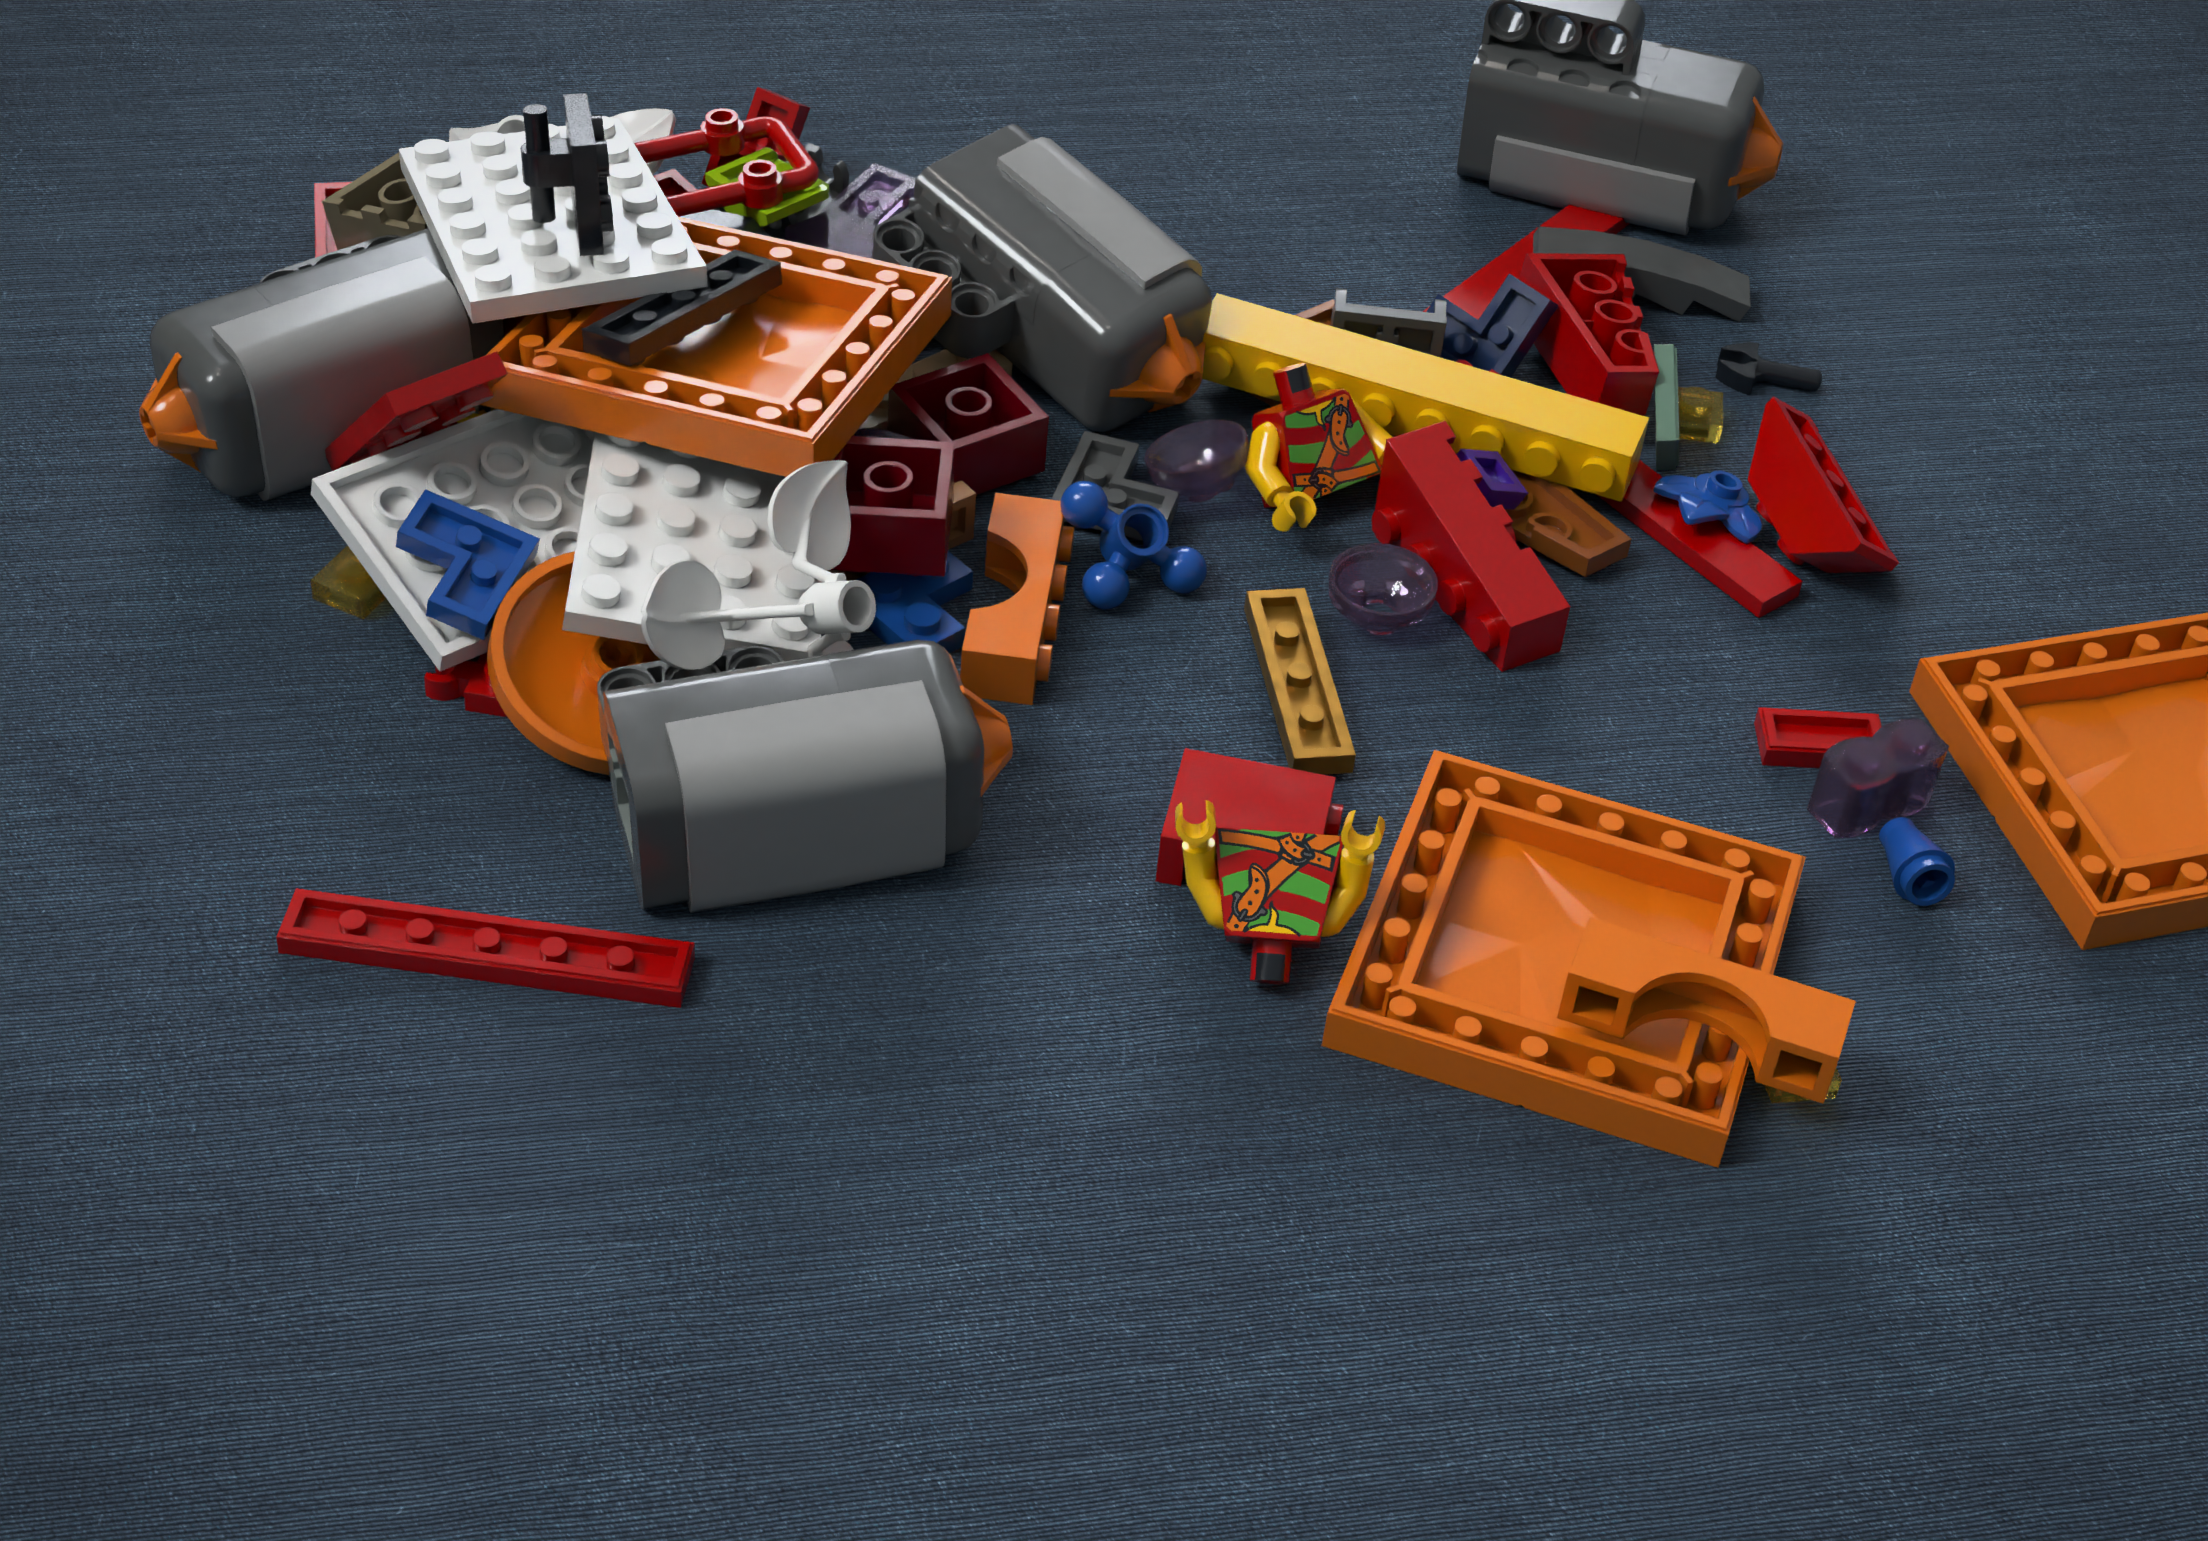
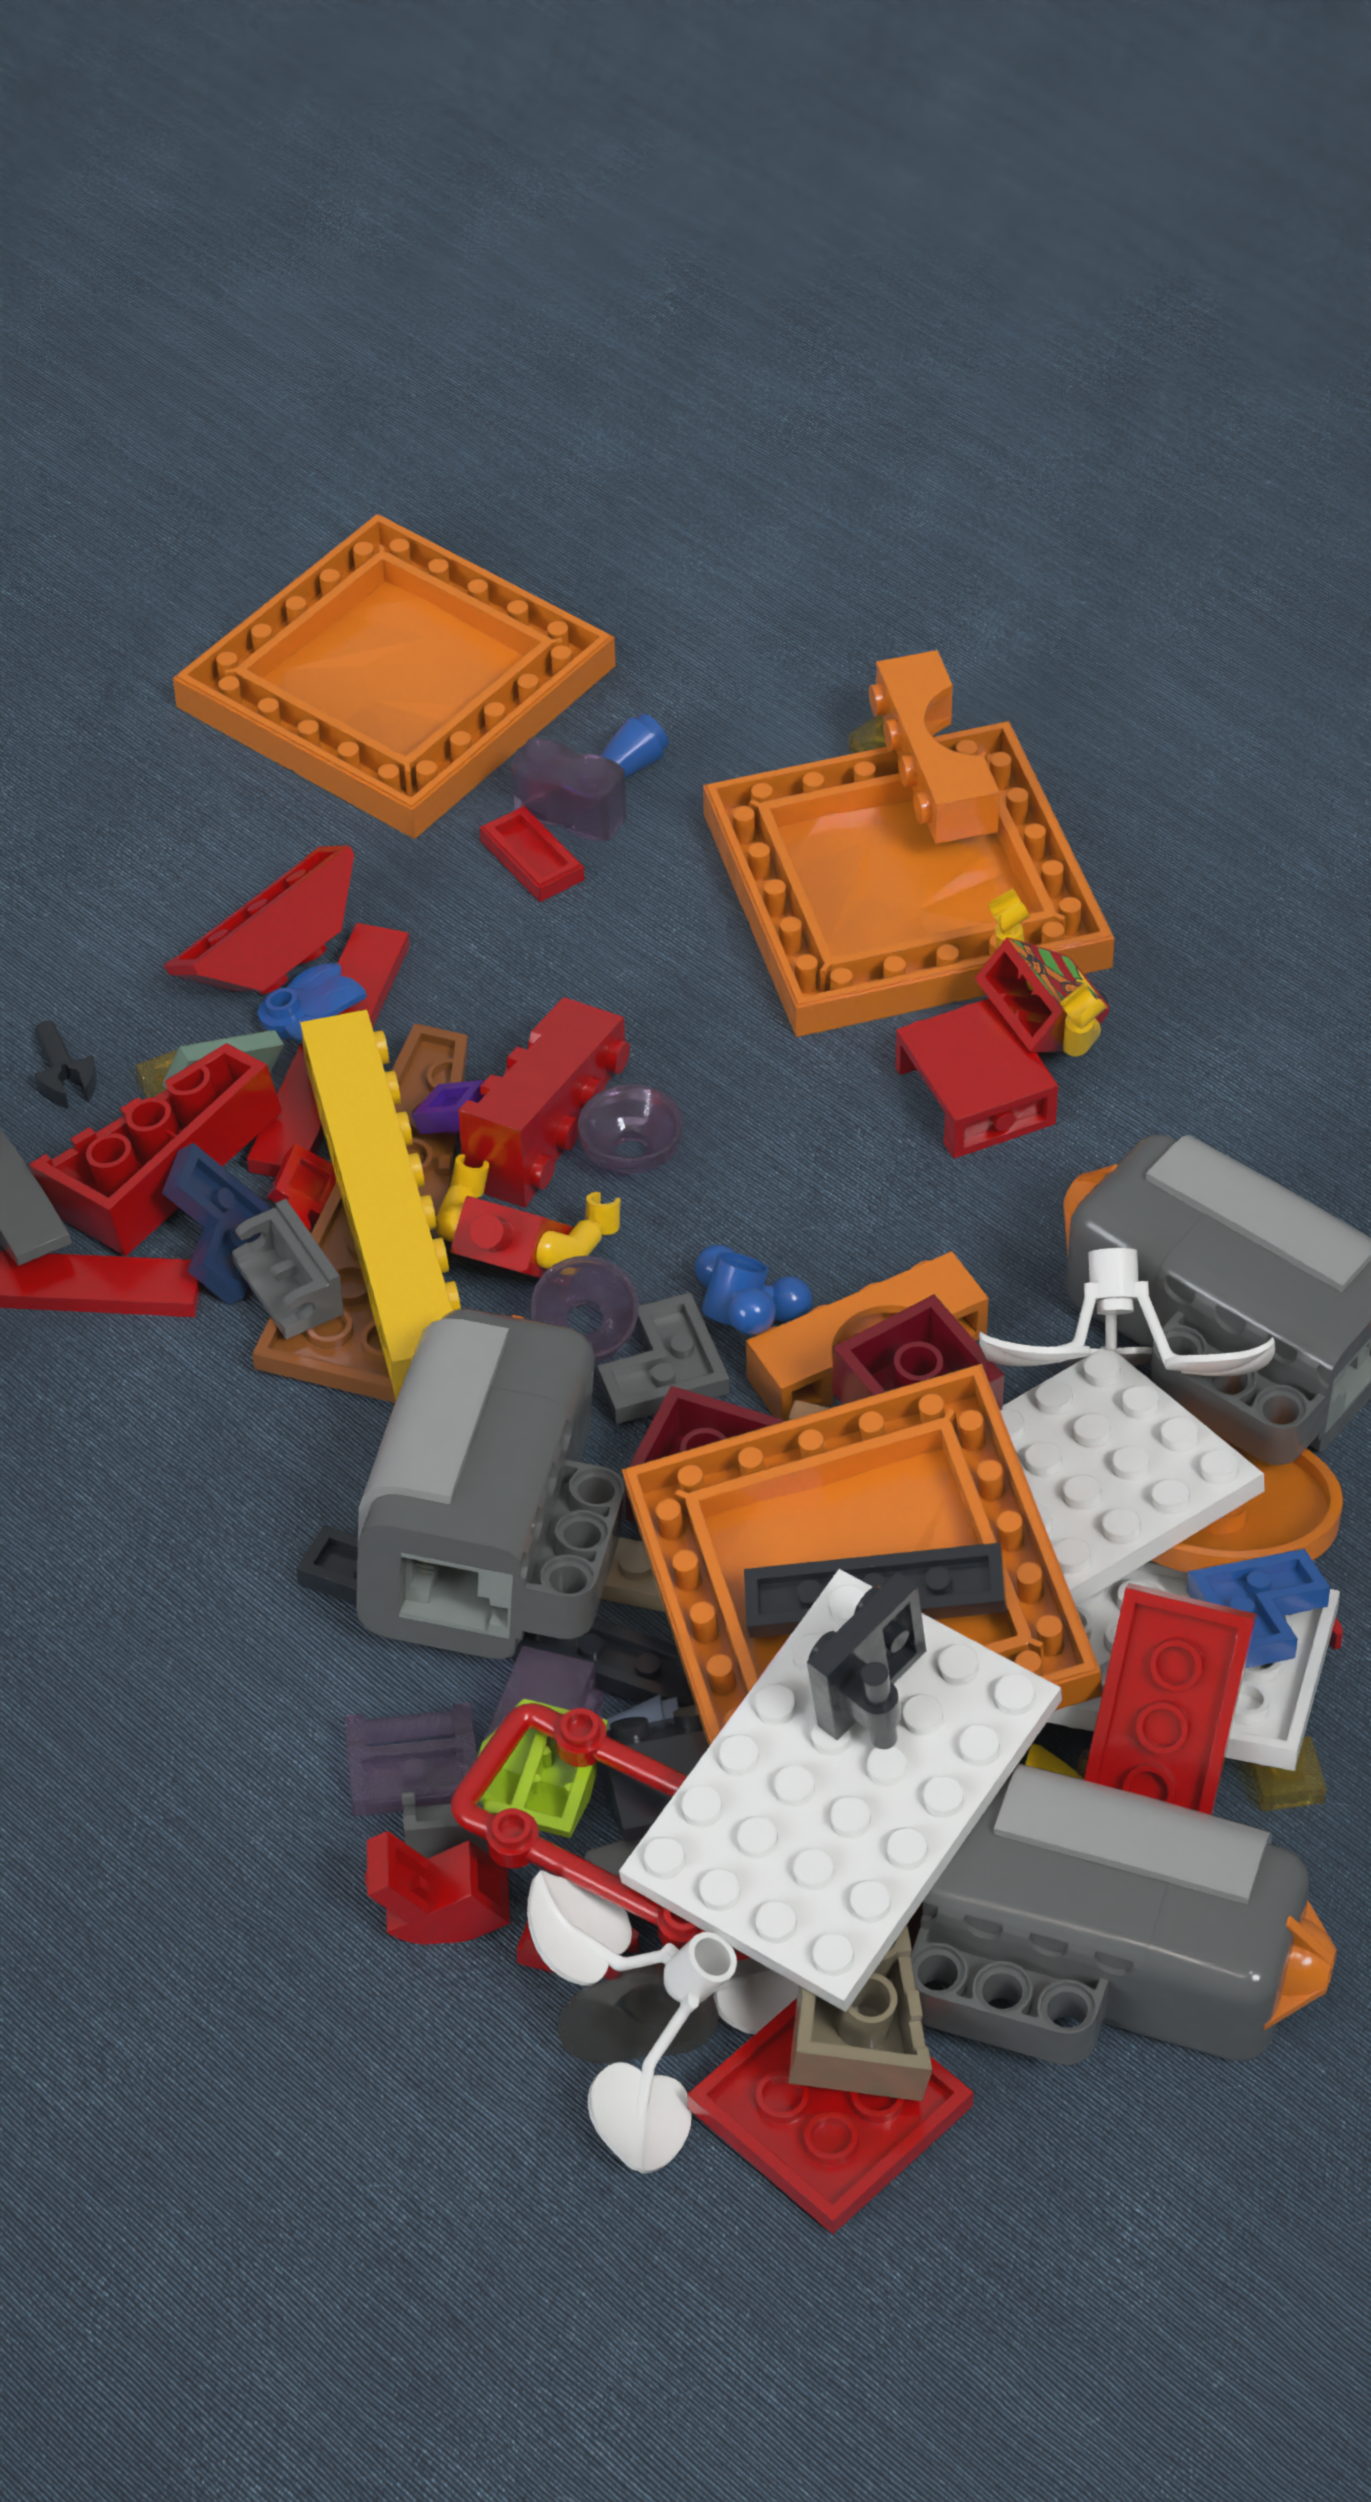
camera: 120 degrees left, 5 degrees up
(1299, 681) = (778, 1136): pearl gold plate -> none

